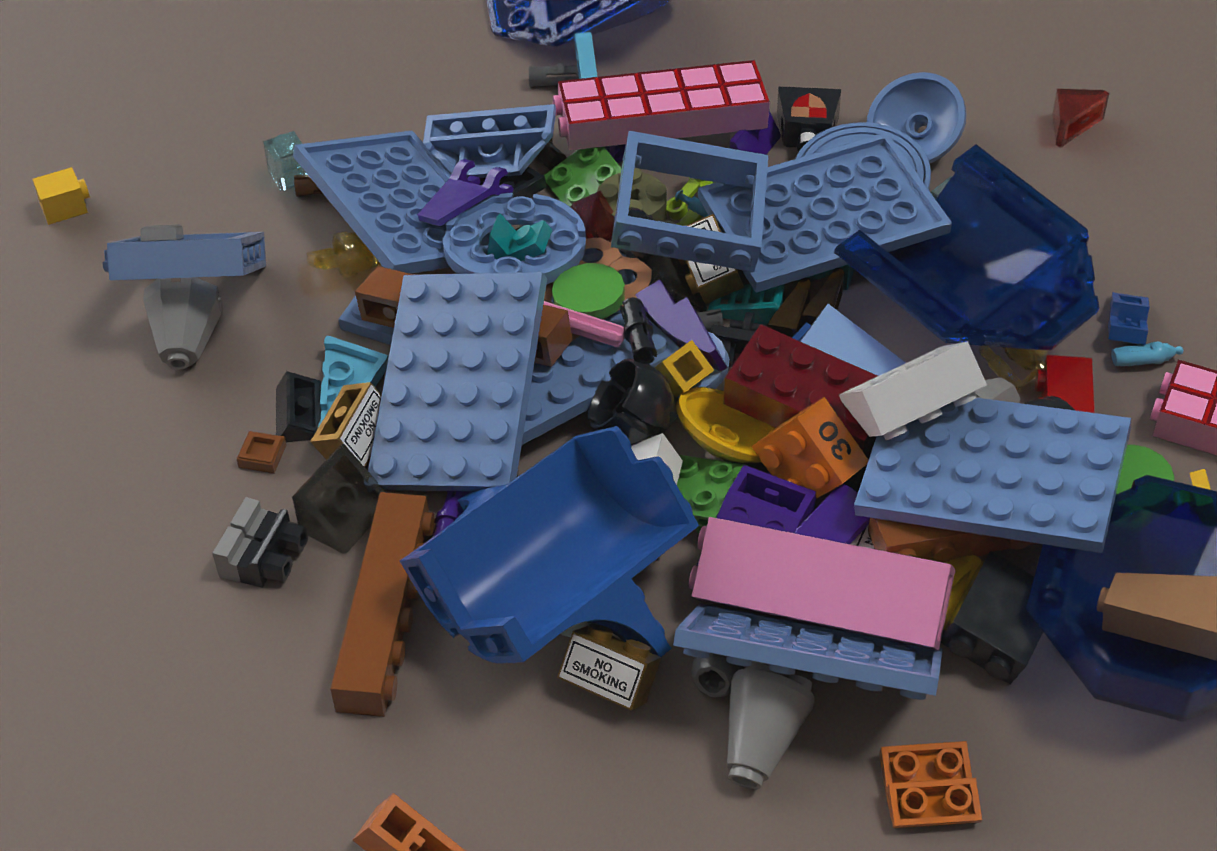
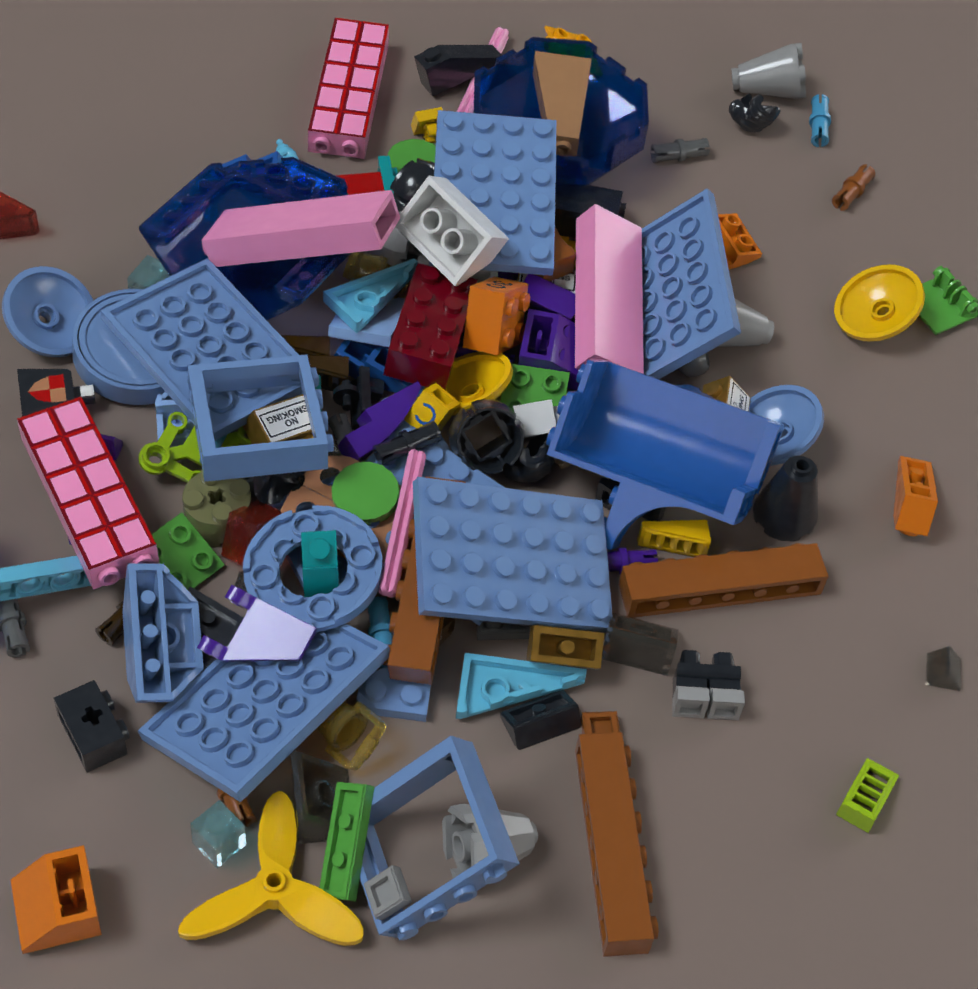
camera: 115 degrees left, 5 degrees up
(56, 633) = (858, 814): none -> lime slope
(135, 419) = (614, 845): none -> dark orange brick
(172, 795) = (943, 669): none -> clear smoke slope
(228, 190) = (276, 889): none -> yellow piece
(231, 225) = (346, 840): none -> bright green tile
(276, 71) = (55, 901): none -> orange slope
(290, 222) = (313, 795): none -> clear smoke slope
(427, 97) = (96, 743): none -> black brick
(457, 697) = (789, 501): none -> black cone
(569, 719) = (797, 410): none -> medium blue dish
(861, 336) = (364, 297): none -> medium azure wing
(947, 272) = (302, 229): none -> bright pink brick
(1129, 791) = (679, 150): none -> dark grey pin

